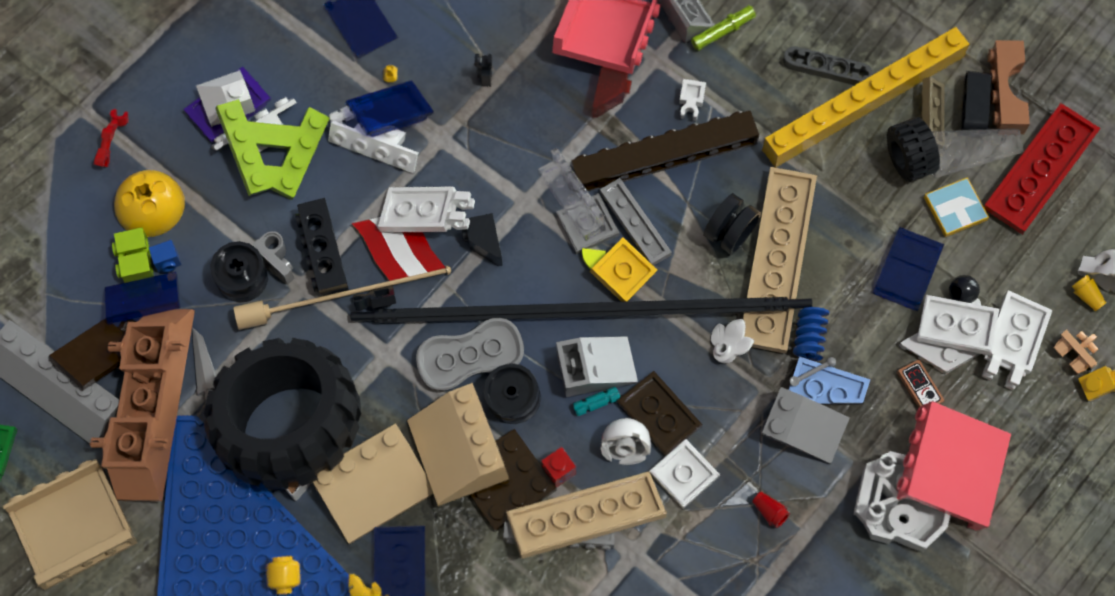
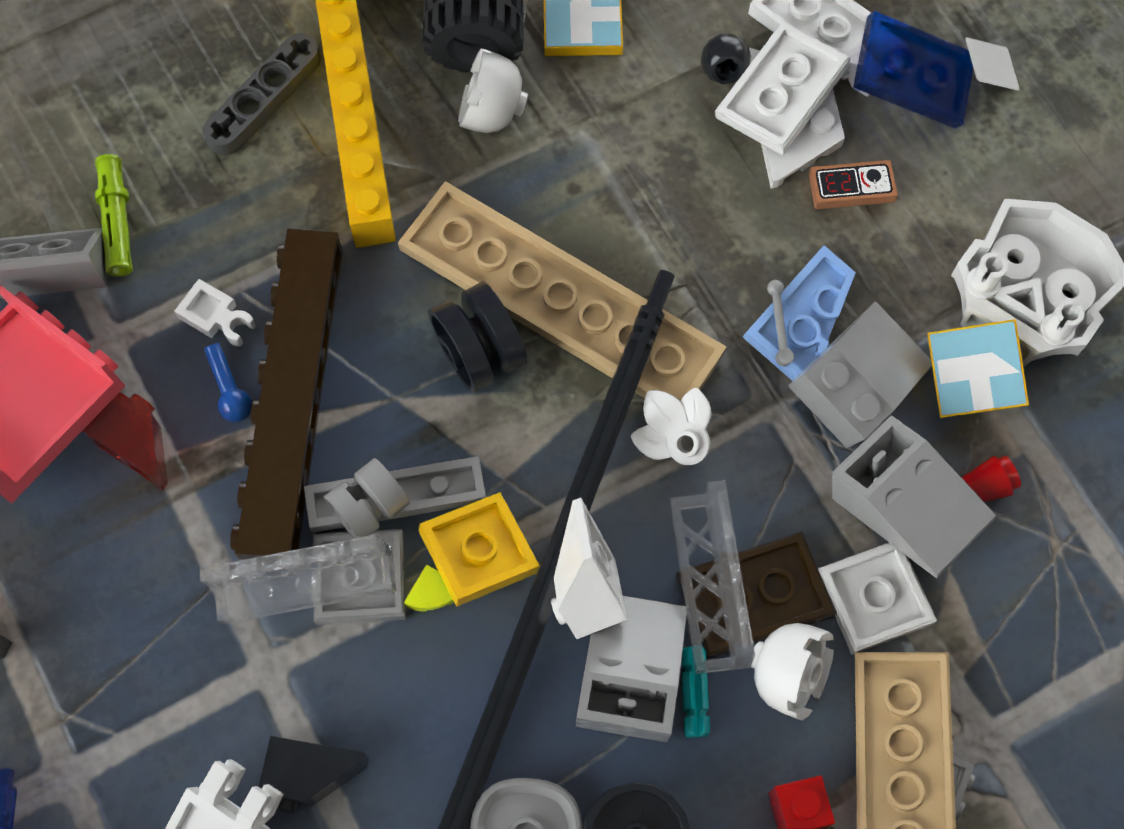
camera: 70 degrees left, 0 degrees up
(622, 206) = (367, 499): none -> light grey wheel
(630, 324) = (586, 578): none -> white slope
(652, 127) = (233, 403): none -> blue bar
(657, 391) = (729, 579): none -> clear fence
(741, 467) = (910, 497): none -> light grey slope
(808, 333) = (711, 300): blue piece -> none
(832, 482) = (978, 368): none -> medium azure tile
(879, 177) = (491, 94): none -> white cylinder
(908, 269) = (654, 123): clear blue piece -> none
(954, 464) = (1010, 185): coral panel -> none
(1006, 392) = (914, 70): none -> clear blue tile
(1037, 438) = (992, 64): none -> white sticker

